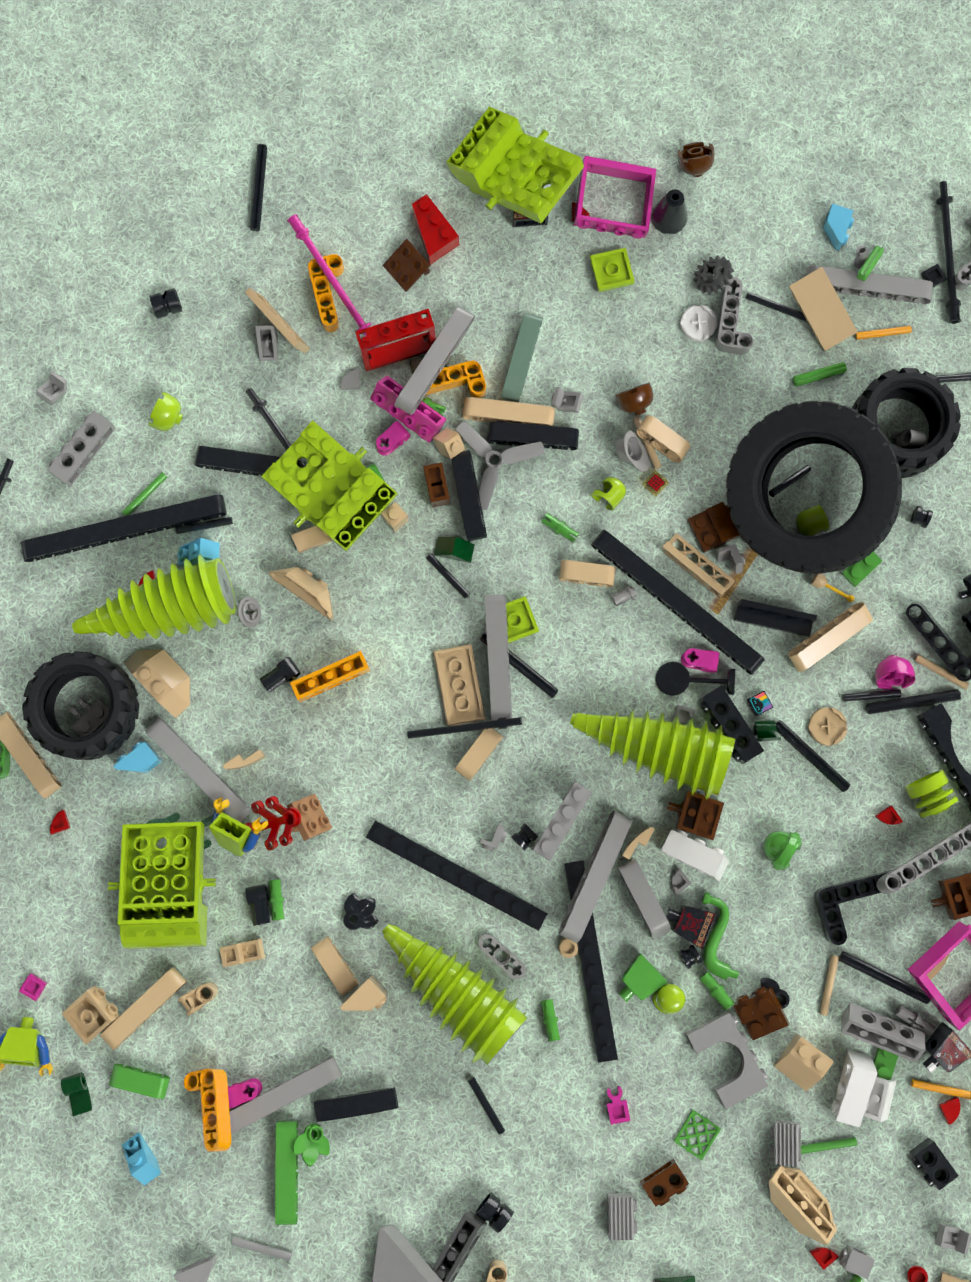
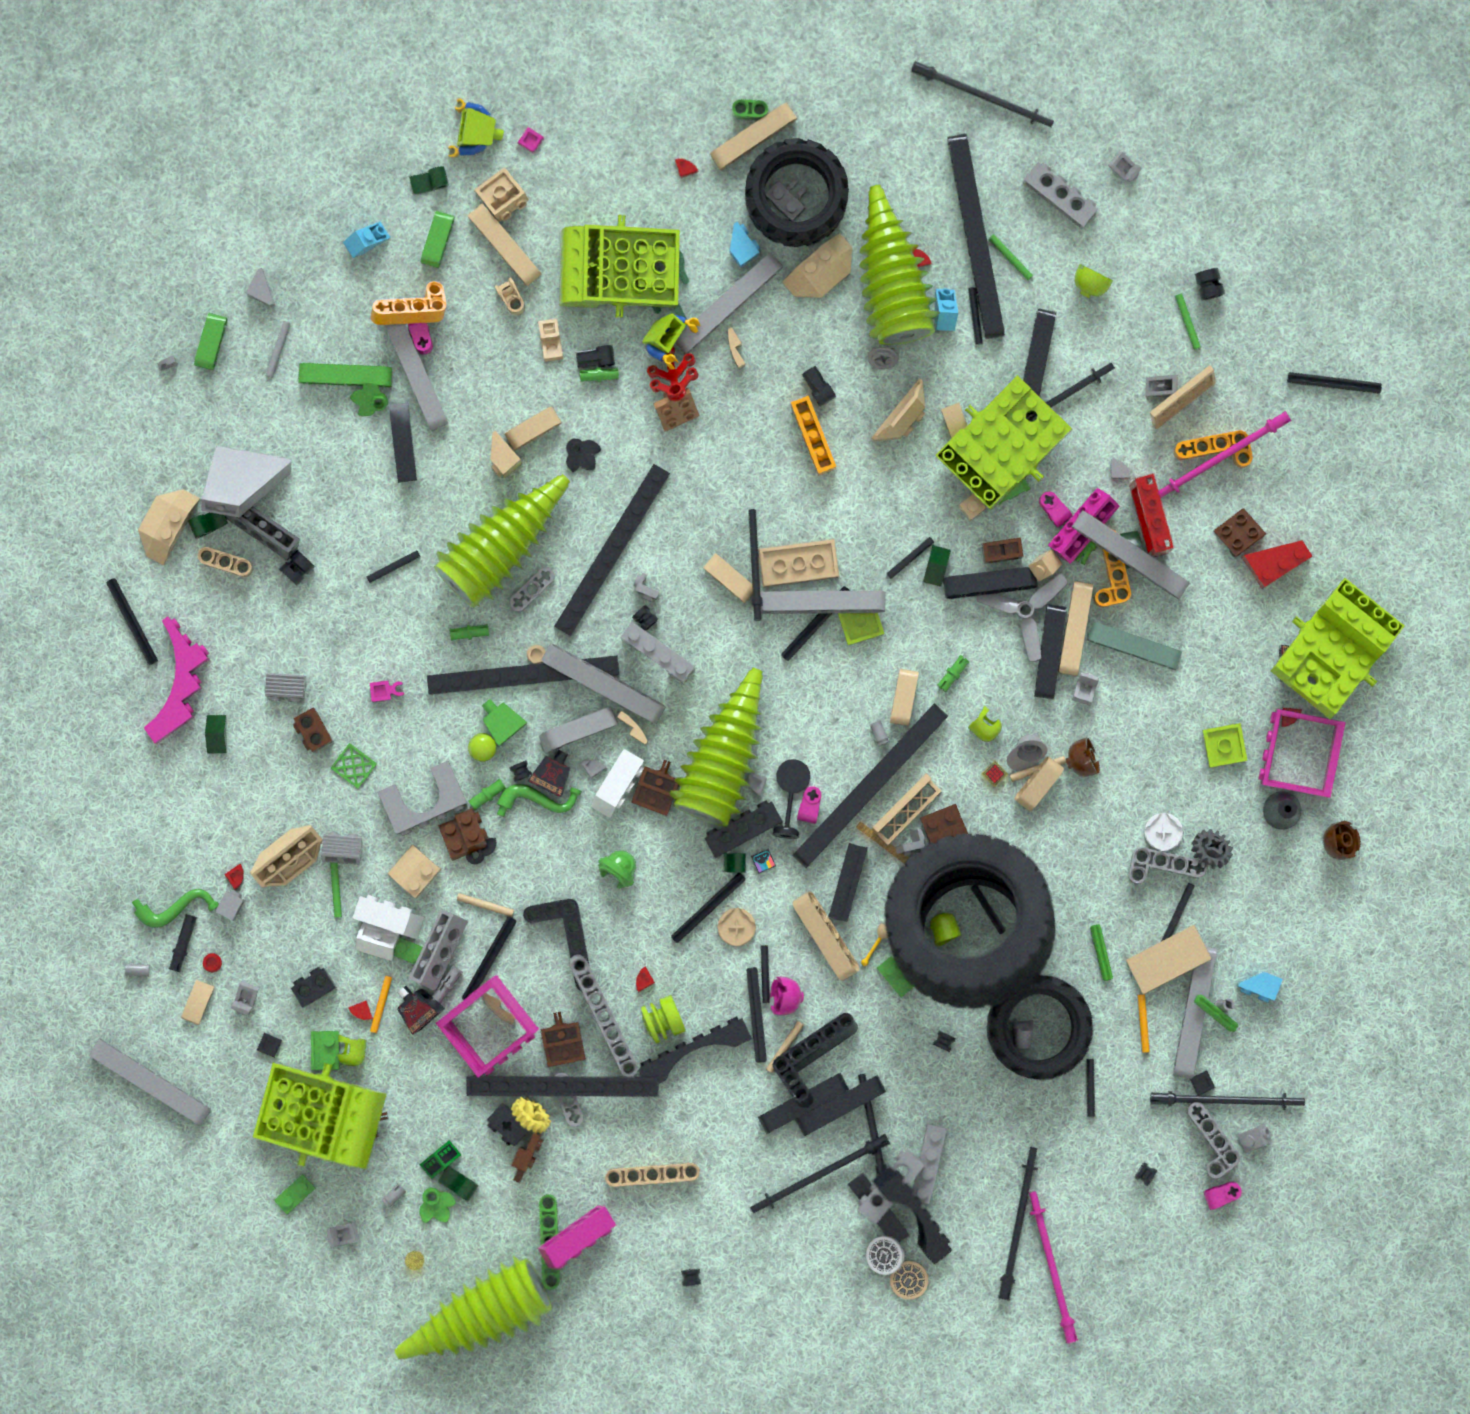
camera: 95 degrees right, 5 degrees up
(203, 324) = (1188, 322): none -> bright green bar

